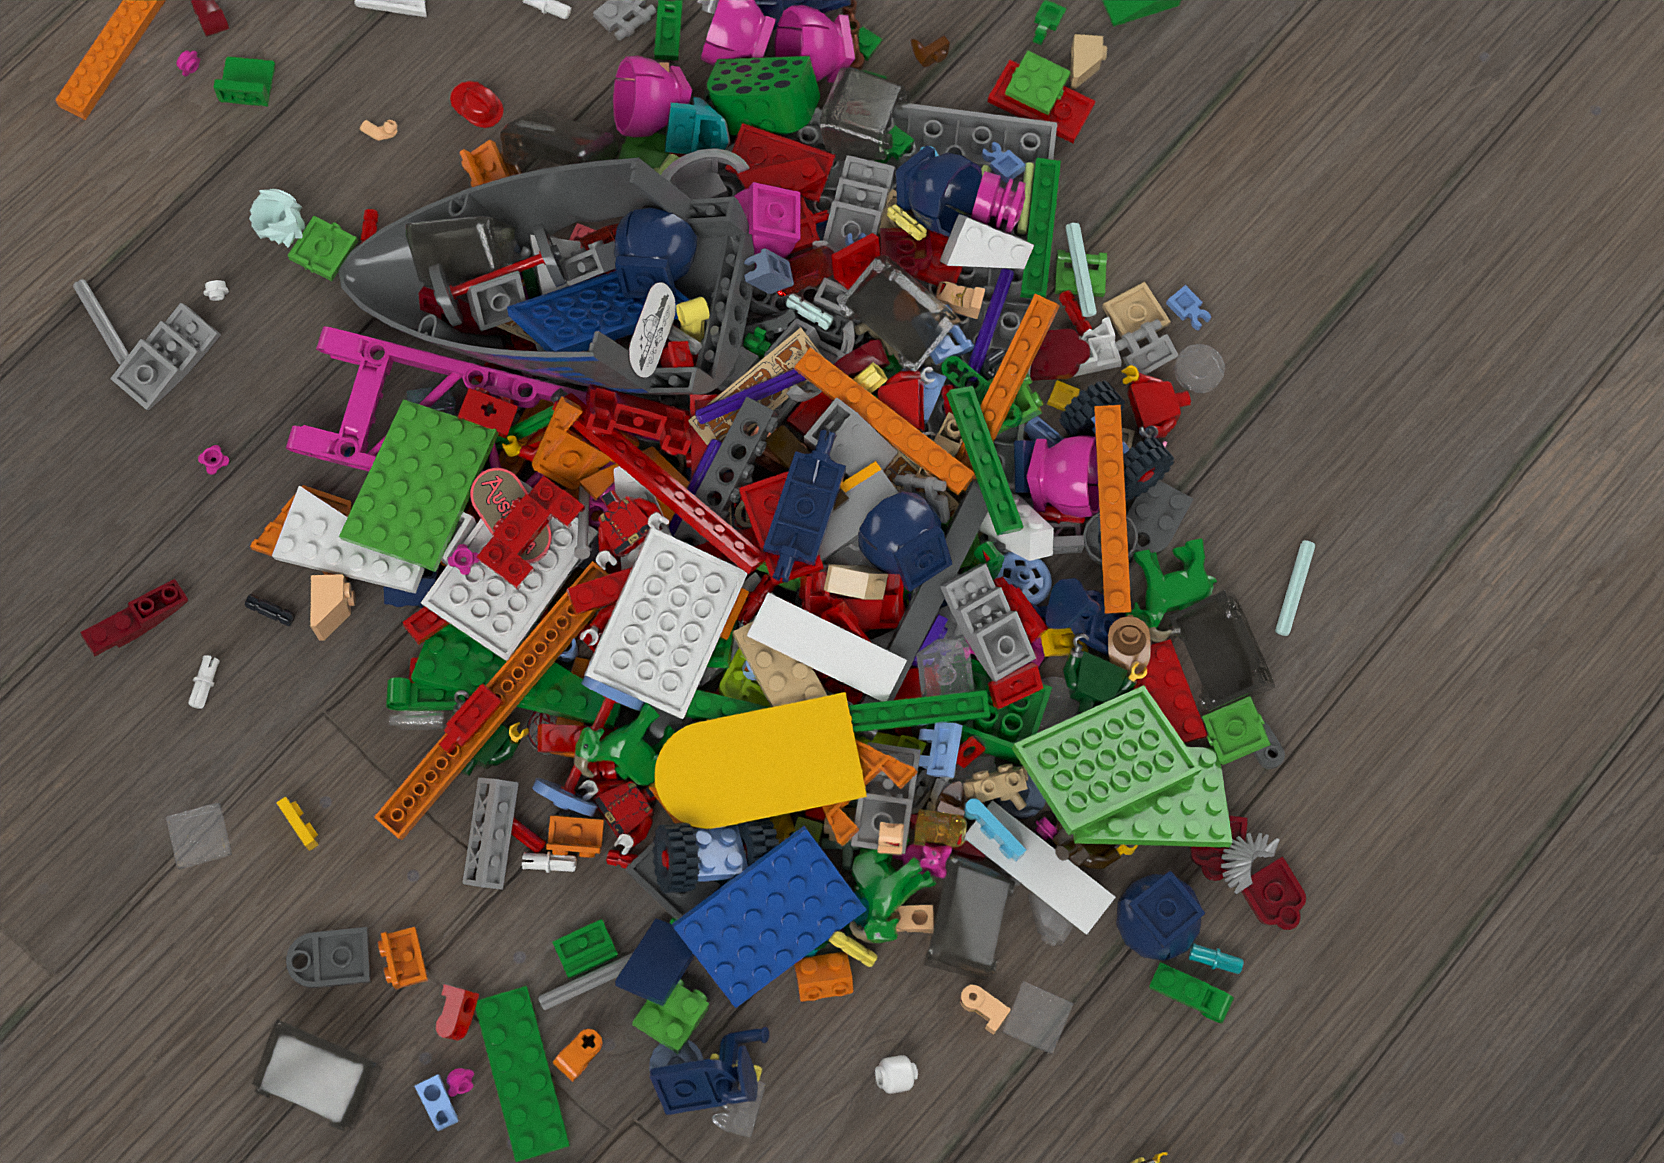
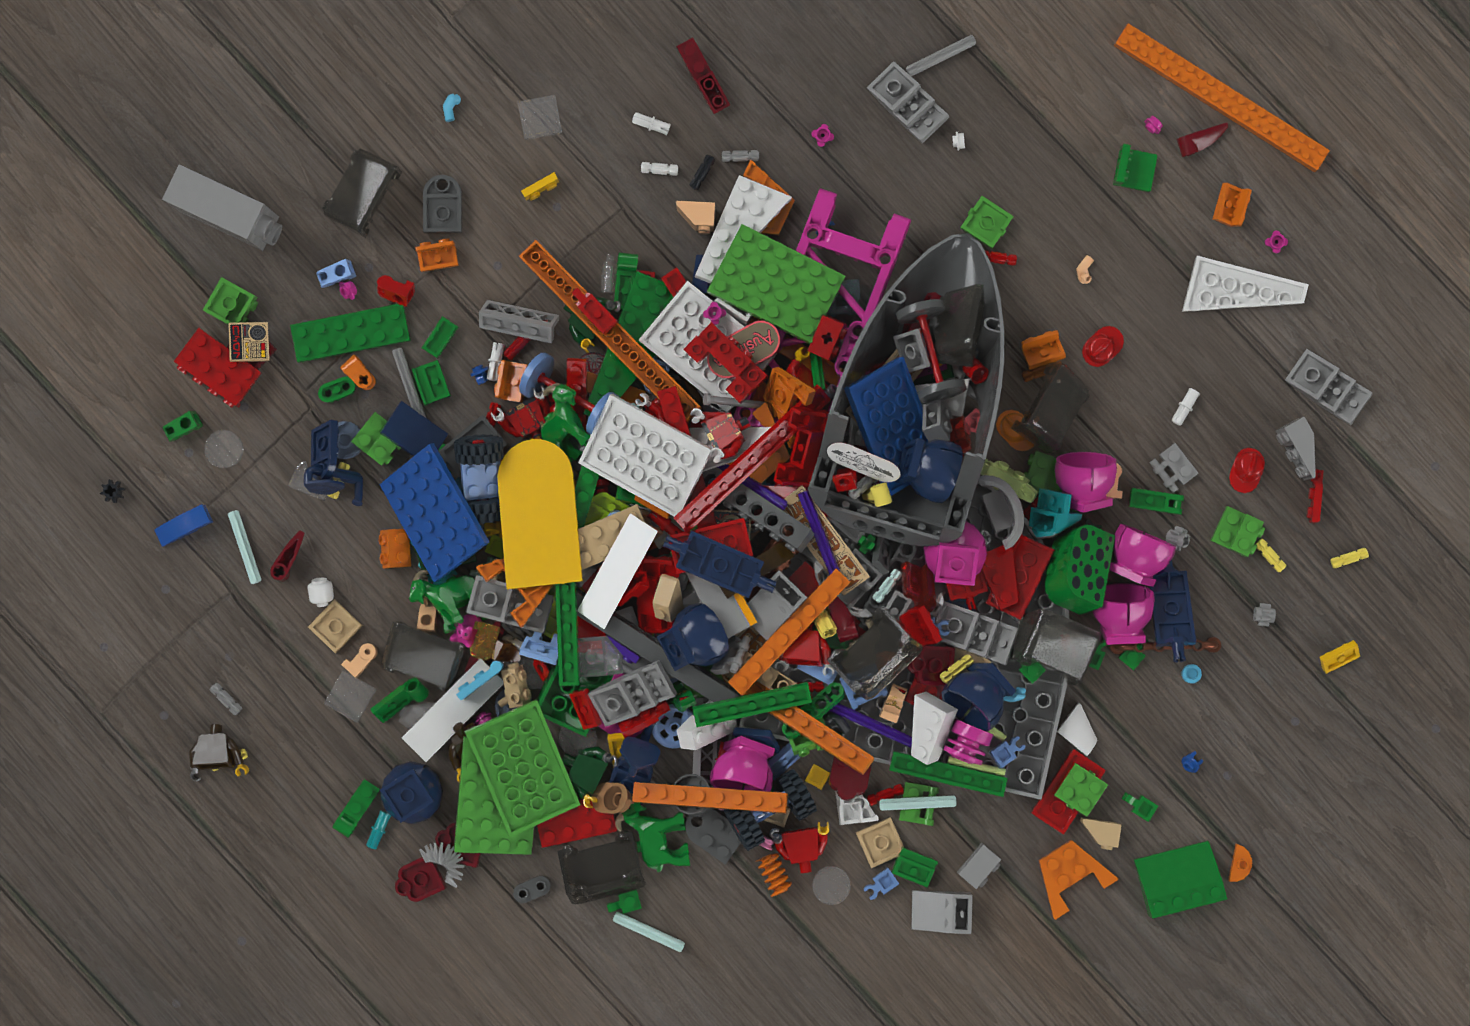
camera: 105 degrees right, 15 degrees up
(184, 965) = (448, 106): none -> medium azure arm
(245, 562) = (740, 156): none -> light grey axle
(266, 666) = (659, 168): none -> white axle
(277, 216) = (1011, 188): light aqua hair -> none
(520, 943) = (440, 337): none -> green plate
(523, 226) = (977, 373): none -> red wheel
(565, 881) = (480, 374): none -> blue plate
(607, 1082) = (337, 389): none -> green plate
(771, 273) = (913, 557): sand blue hinge -> none
(852, 1125) = (287, 557): none -> dark red piece
(853, 948) = (410, 571): light yellow axle -> none
(890, 838) = (474, 603): light nougat leg -> none
(932, 53) = (1117, 712): reddish brown plate -> none
(942, 1050) = (335, 626): none -> tan tile
(966, 94) = (1078, 730): none -> white slope
(1031, 946) = (399, 698): none -> green plate
(1135, 98) = (1066, 867): none -> orange wing
(1149, 193) = (979, 866): none -> light grey brick
(1152, 355) = (842, 847): light grey plate -> none
(1161, 269) = (914, 866): none -> green plate
(1196, 433) = (774, 874): none -> orange piece
(1212, 230) = (942, 911): none -> light grey slope
(1236, 730) = (540, 869): bright green plate -> none
(1262, 618) = (627, 901): none -> green plate

